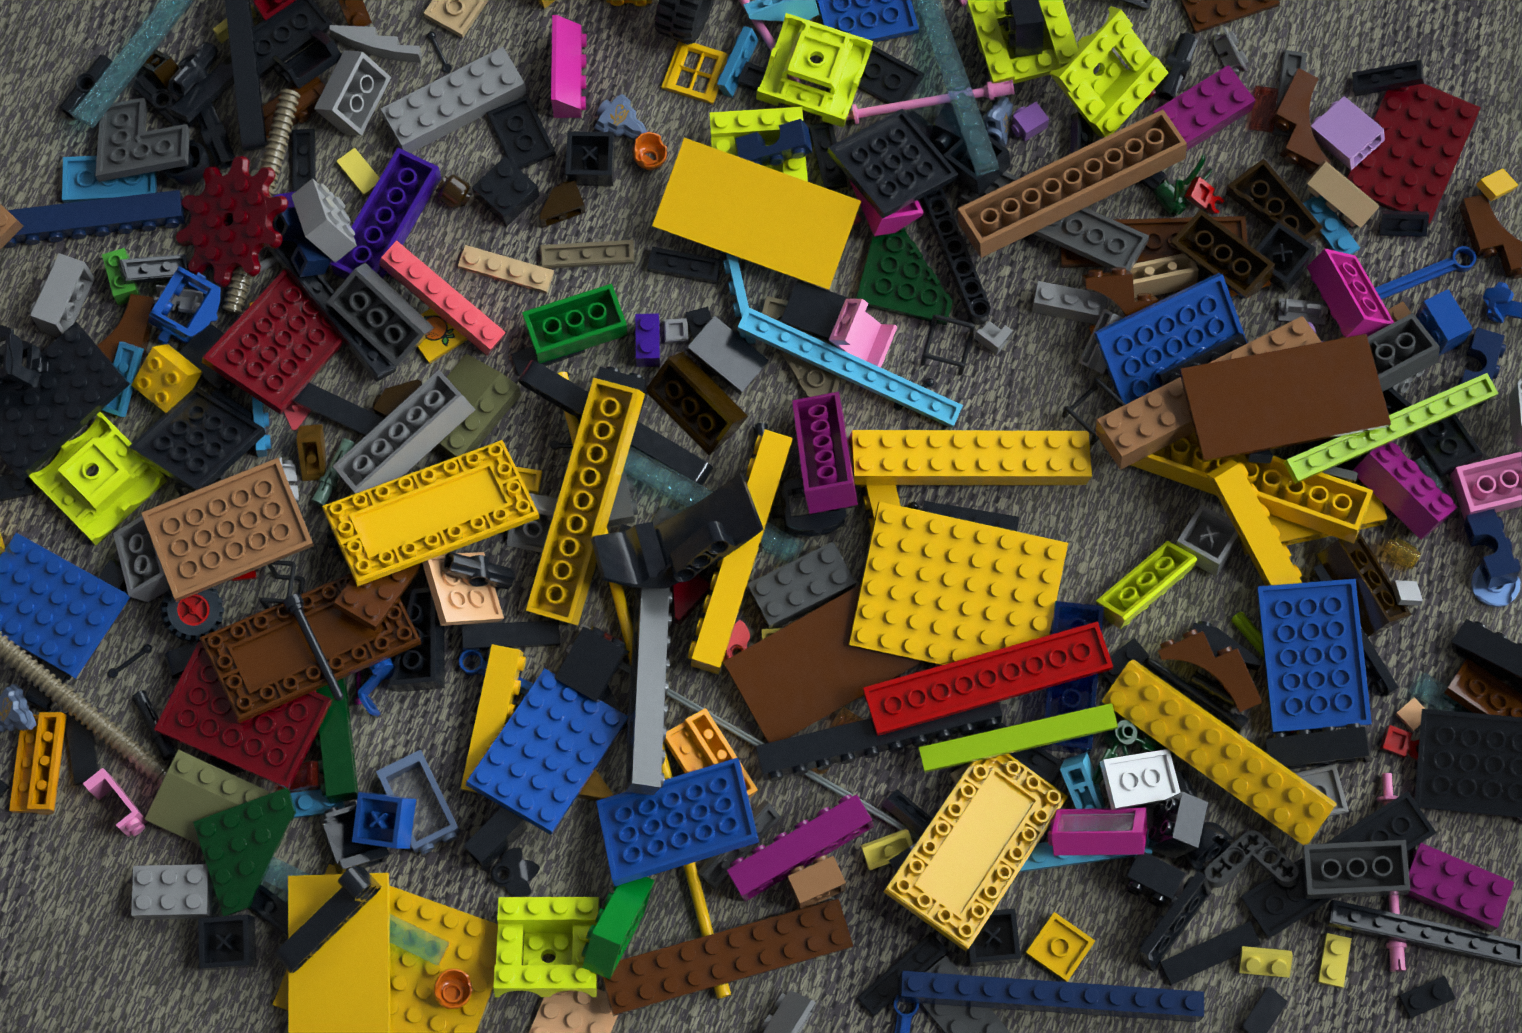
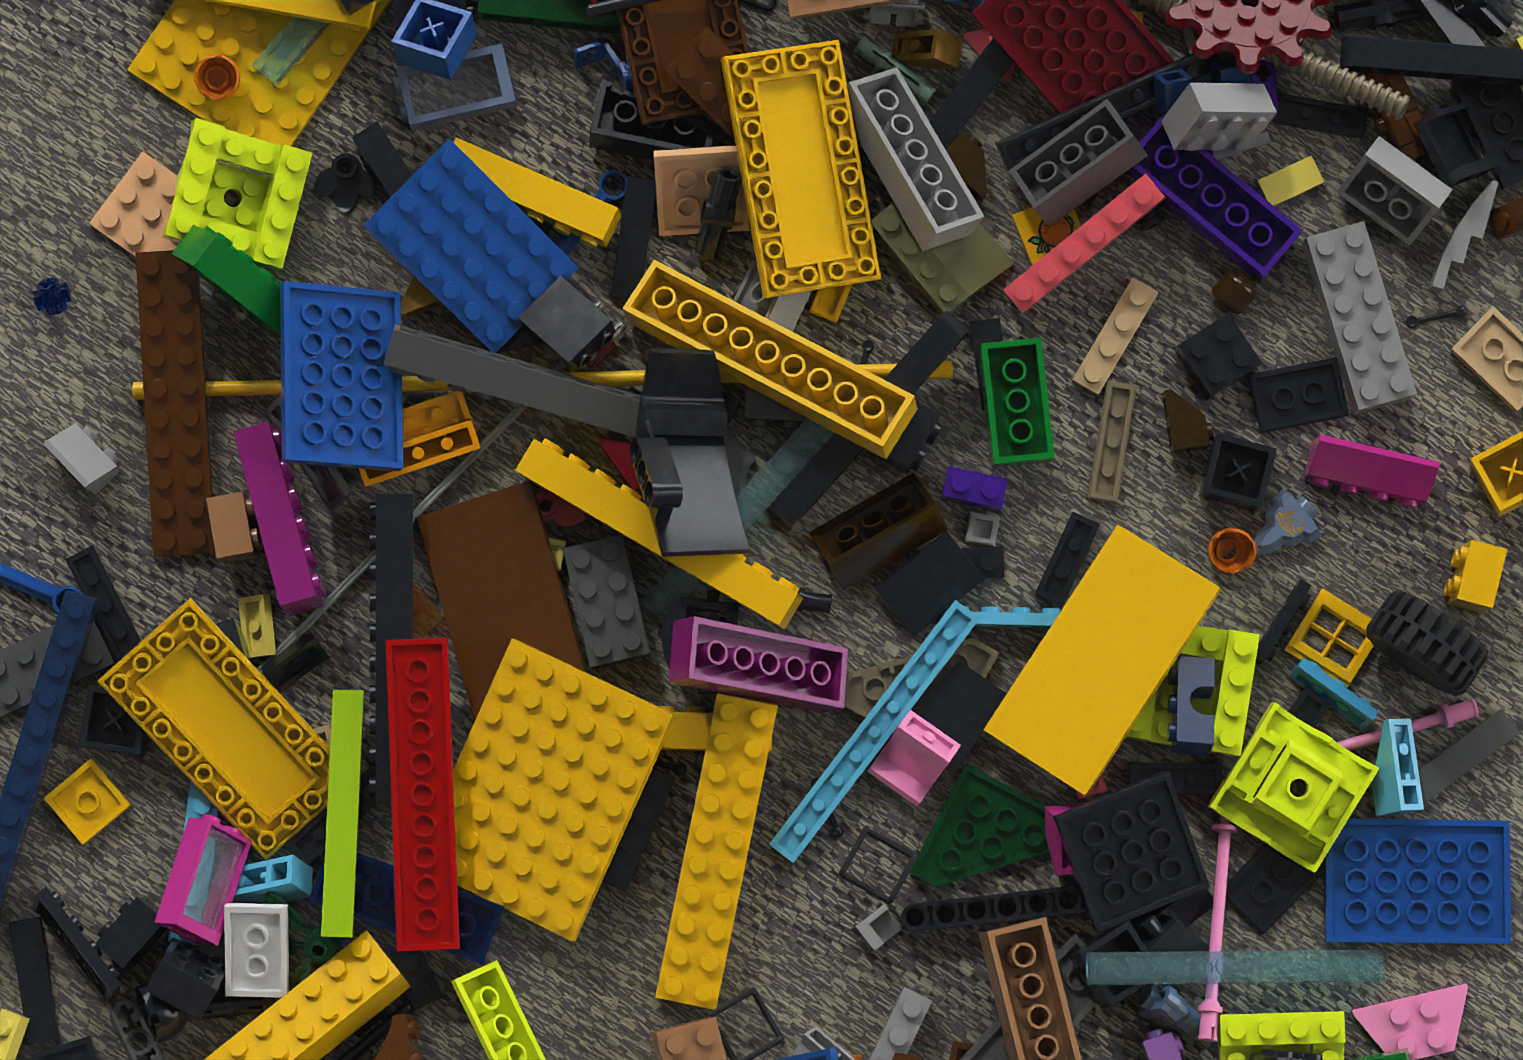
camera: 100 degrees right, 10 degrees up
(690, 106) = (1283, 621): none -> black plate

